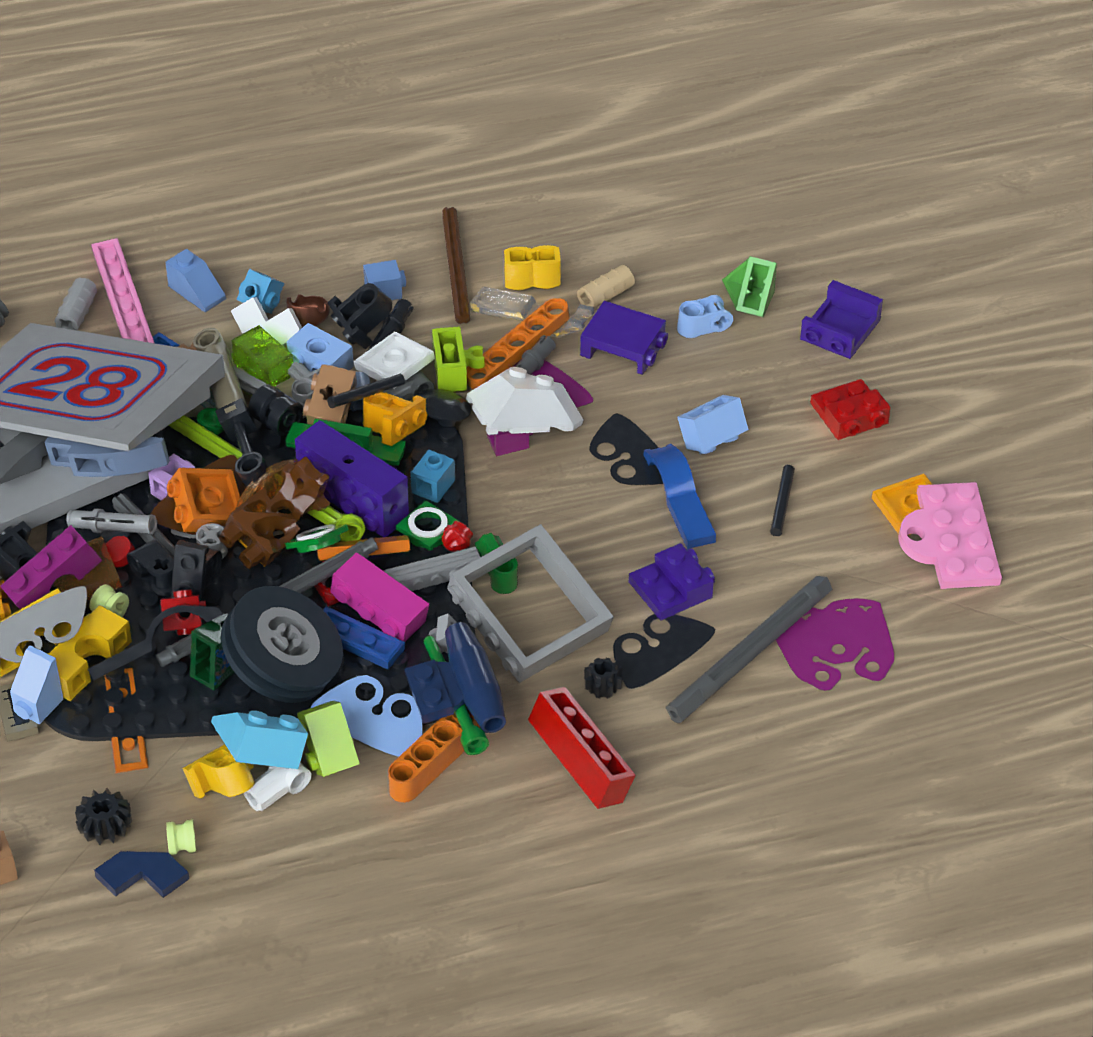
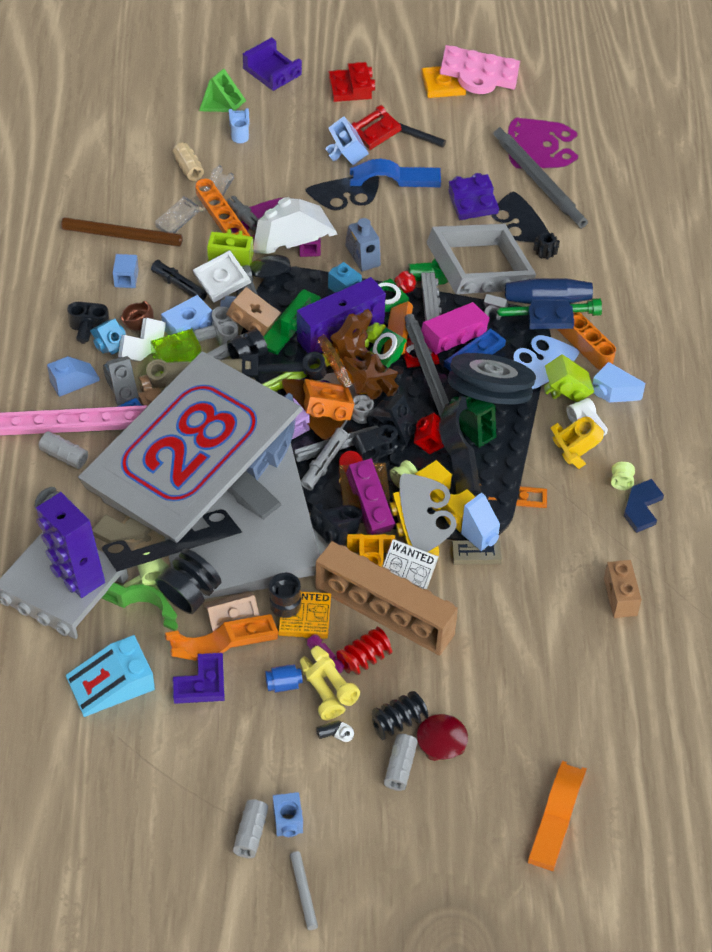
camera: 75 degrees left, 5 degrees up
(103, 816) = (594, 514): black gear -> none
(193, 315) = (121, 379): none -> dark grey pin
(262, 738) = (568, 405): medium azure slope -> none
(290, 270) = (85, 317): none -> black beam
(351, 800) = (617, 385): none -> light blue slope
(361, 313) = (161, 288): black pin -> none
(366, 390) = (261, 289): black bar -> none
(393, 416) = (281, 286): light orange pin -> none
(513, 482) = (360, 239): none -> sand blue torso
(532, 267) = (156, 189): yellow brick -> none
(581, 747) = (608, 264): red brick -> none
(624, 334) = (244, 161): dark purple panel -> none
(763, 457) = (379, 131): none -> red plate

